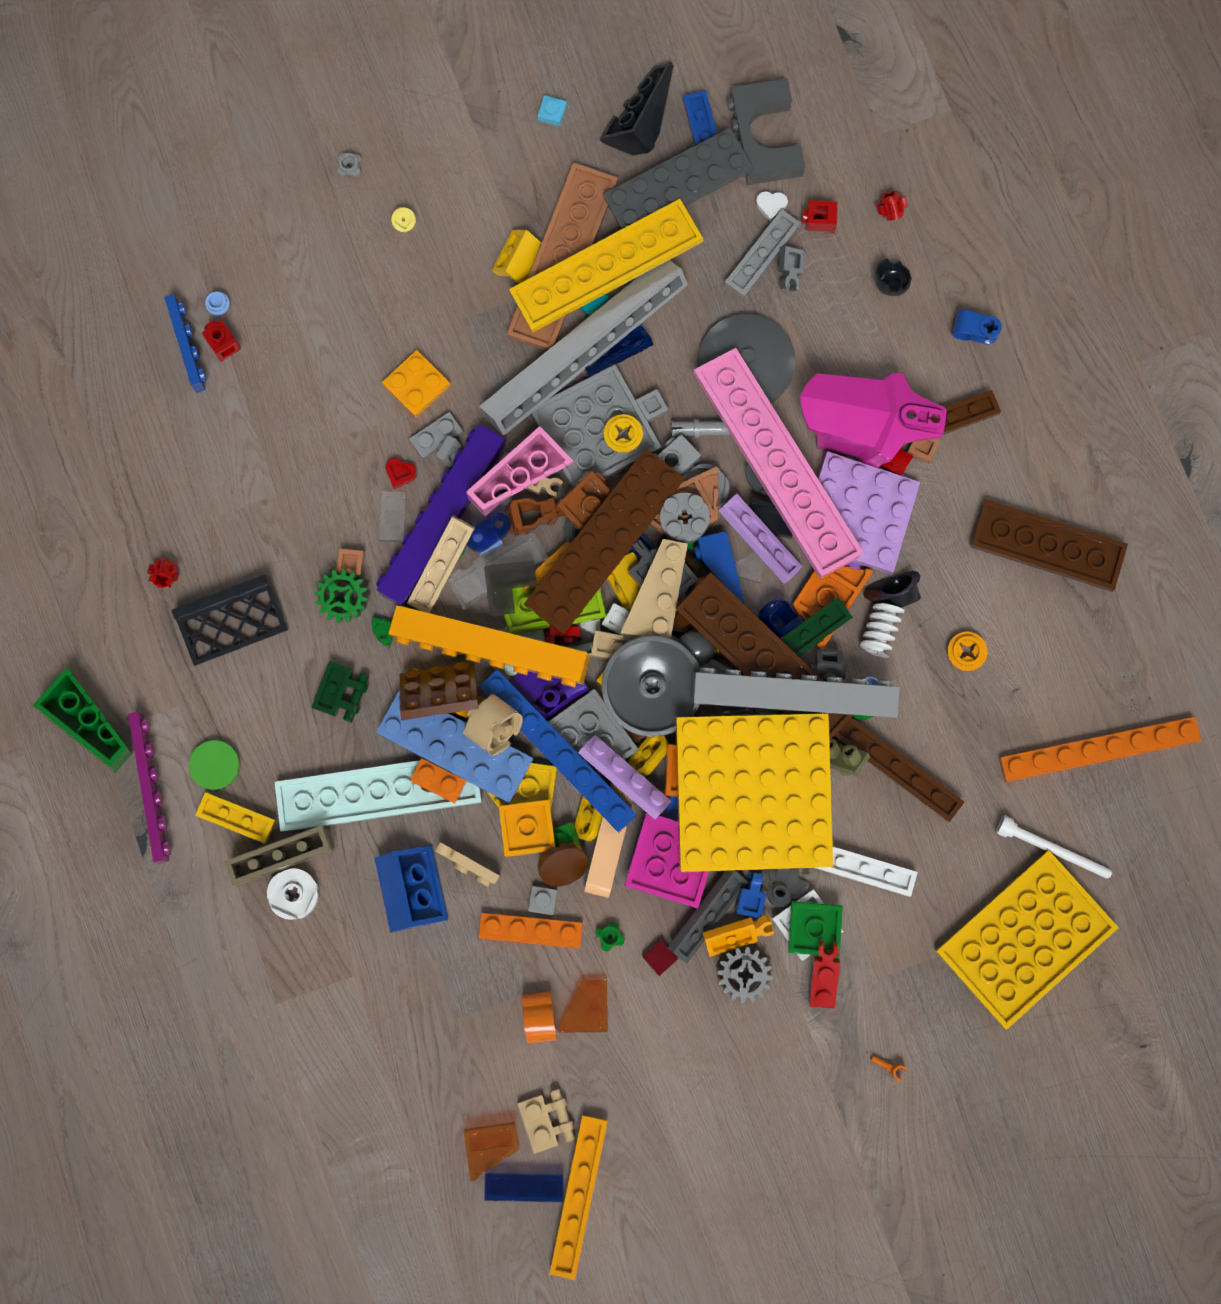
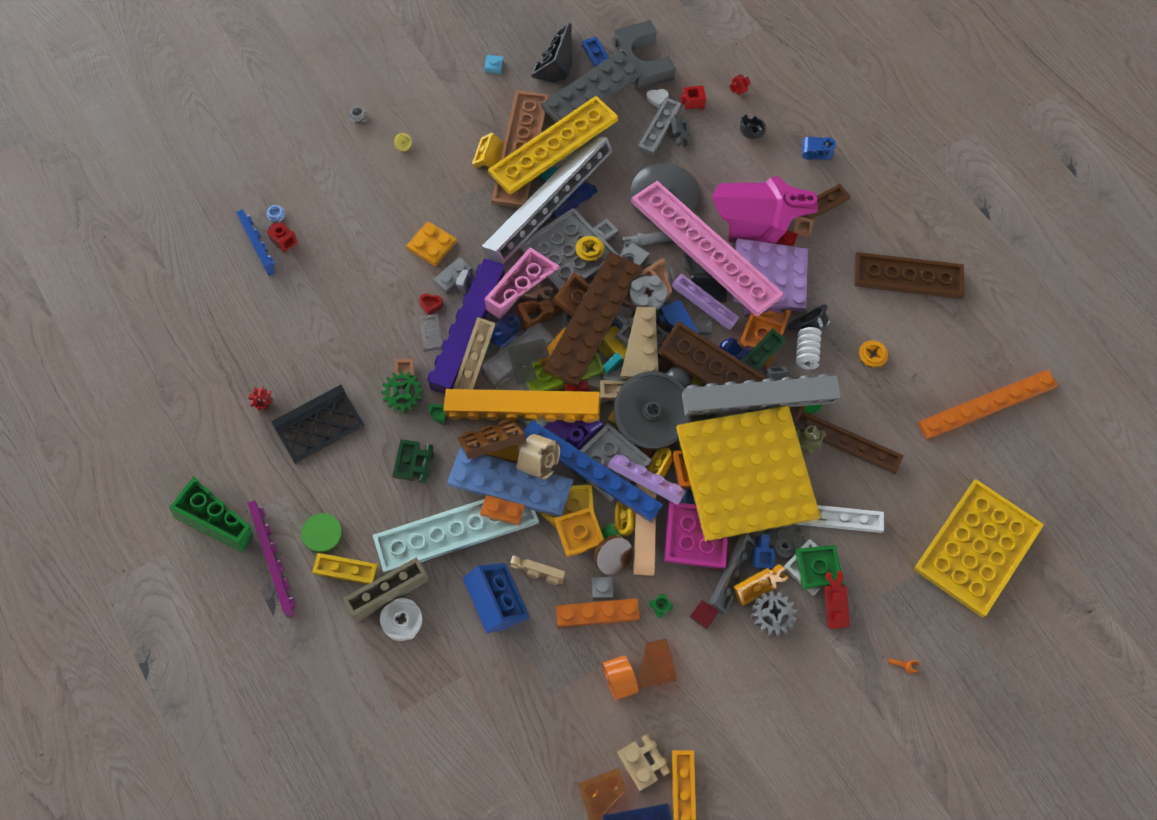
camera: 15 degrees left, 15 degrees down
(616, 611) = (613, 363): none -> teal tile
(1008, 827) = (940, 469): white piece -> none

